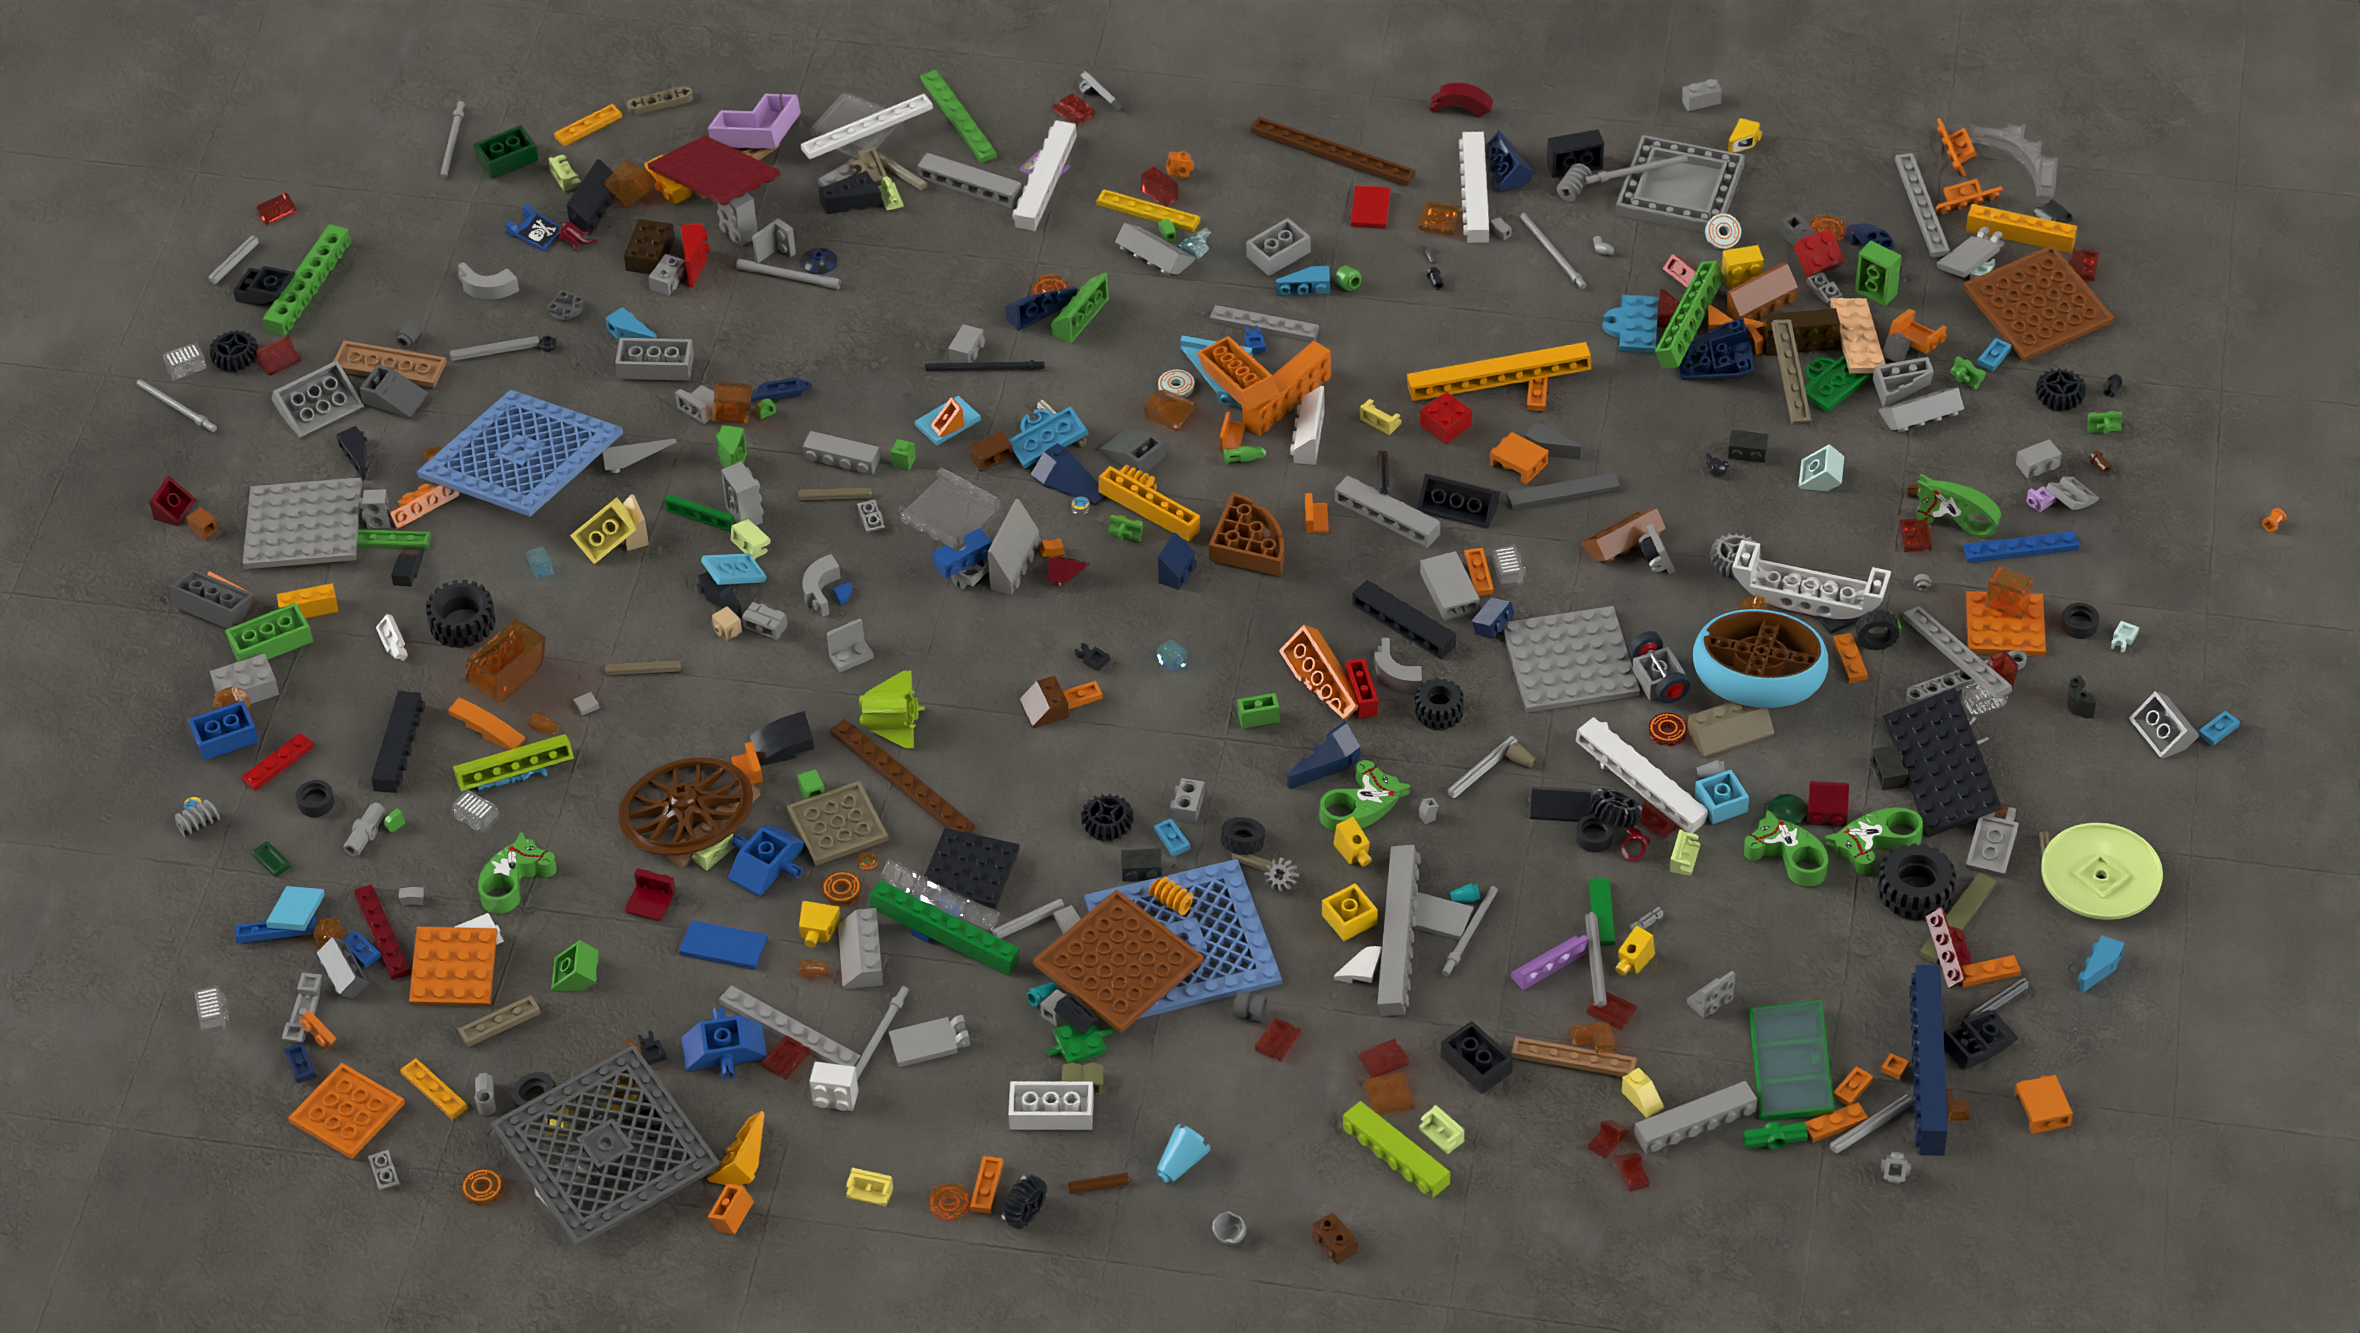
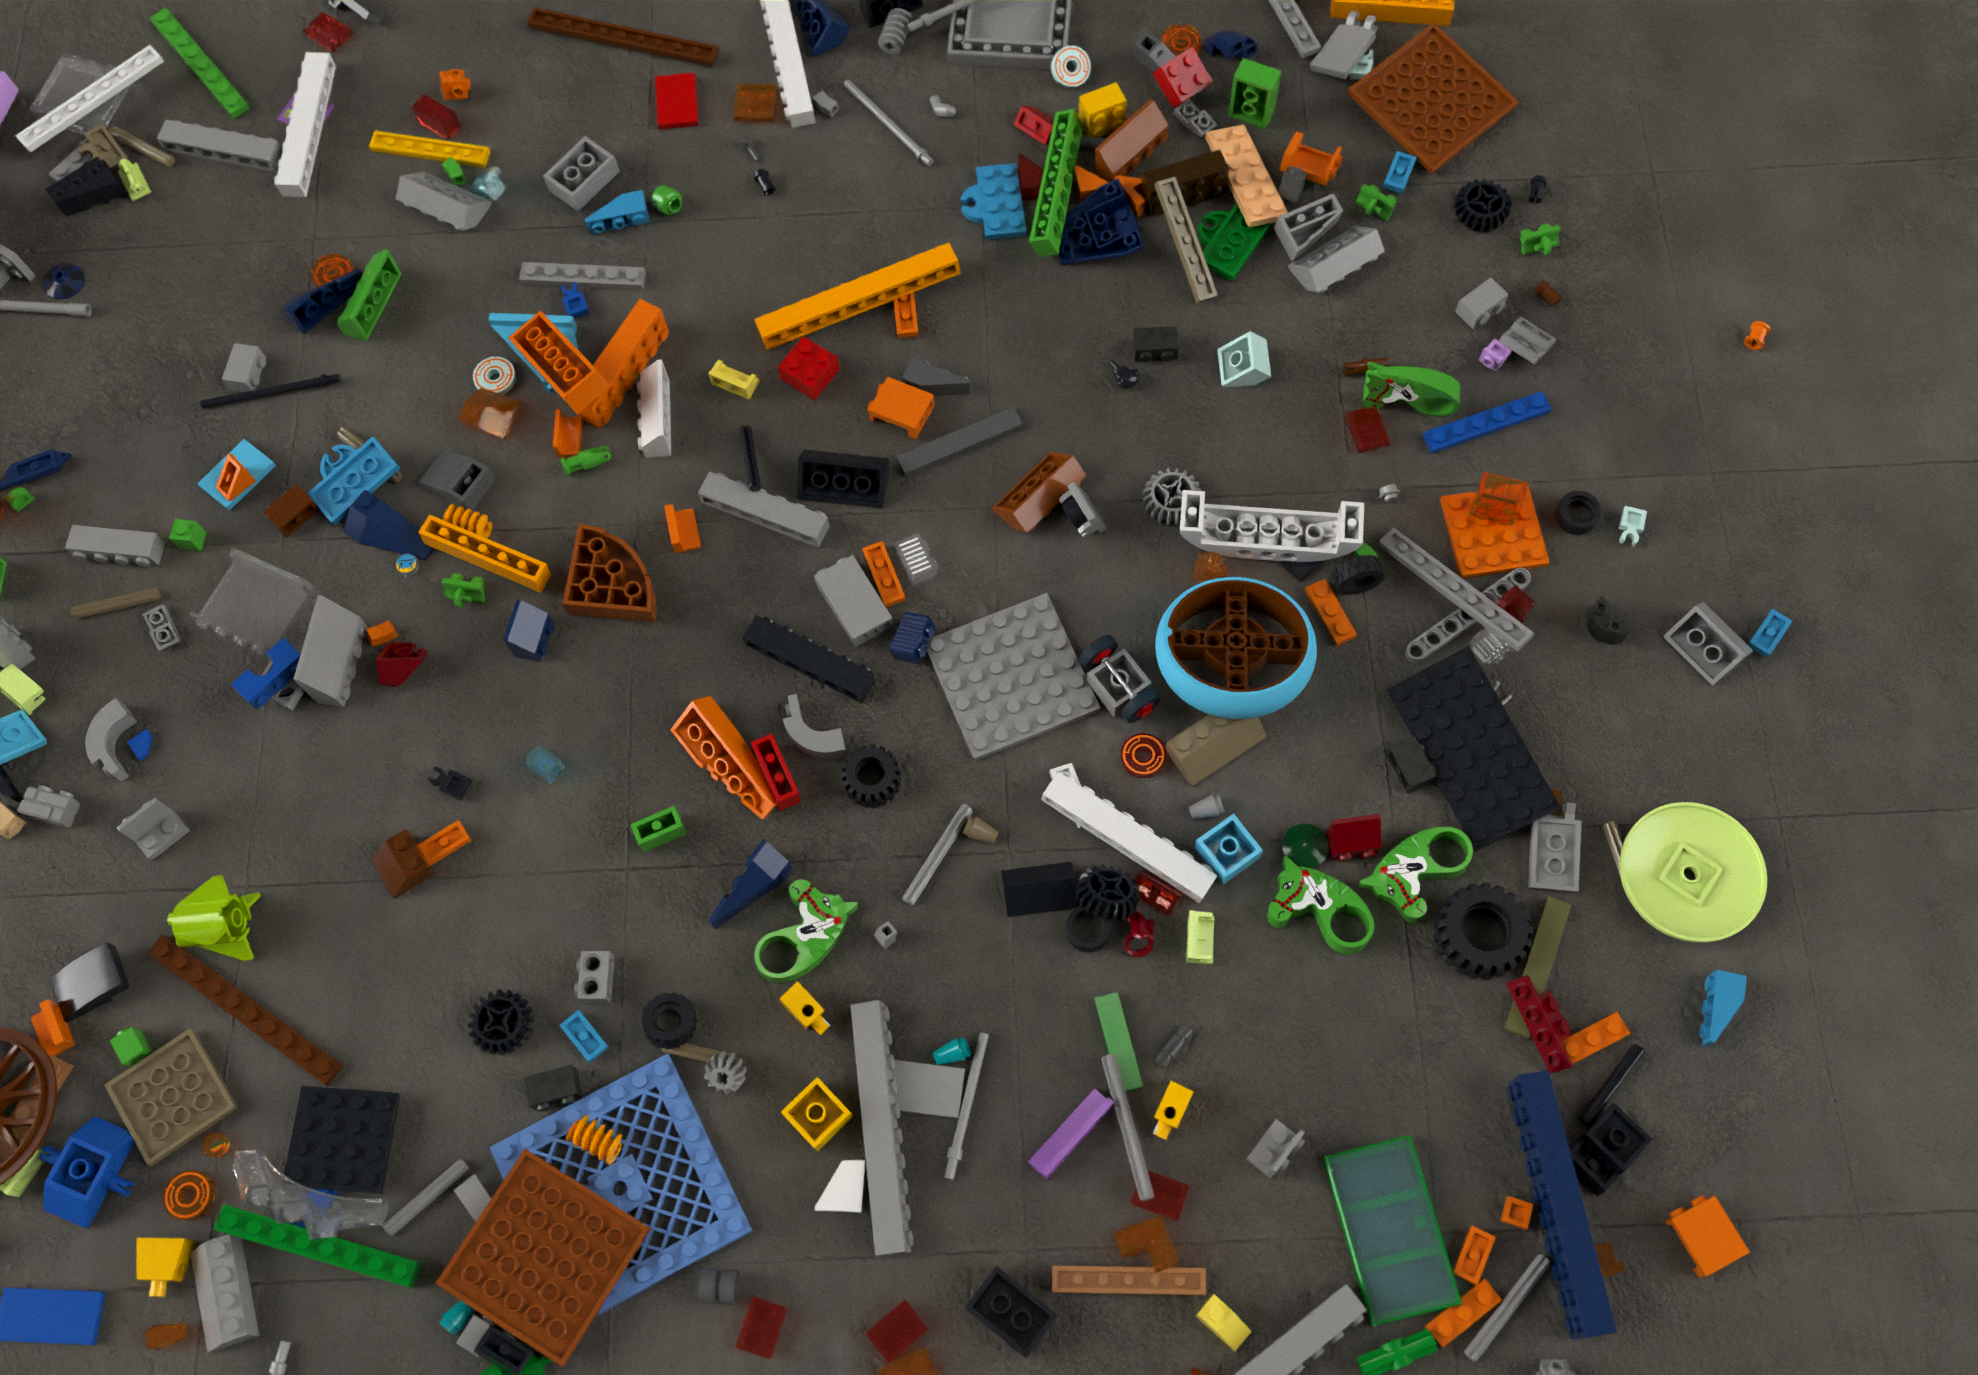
camera: 10 degrees left, 20 degrees up
(2085, 263) = (1469, 37): clear red plate -> none

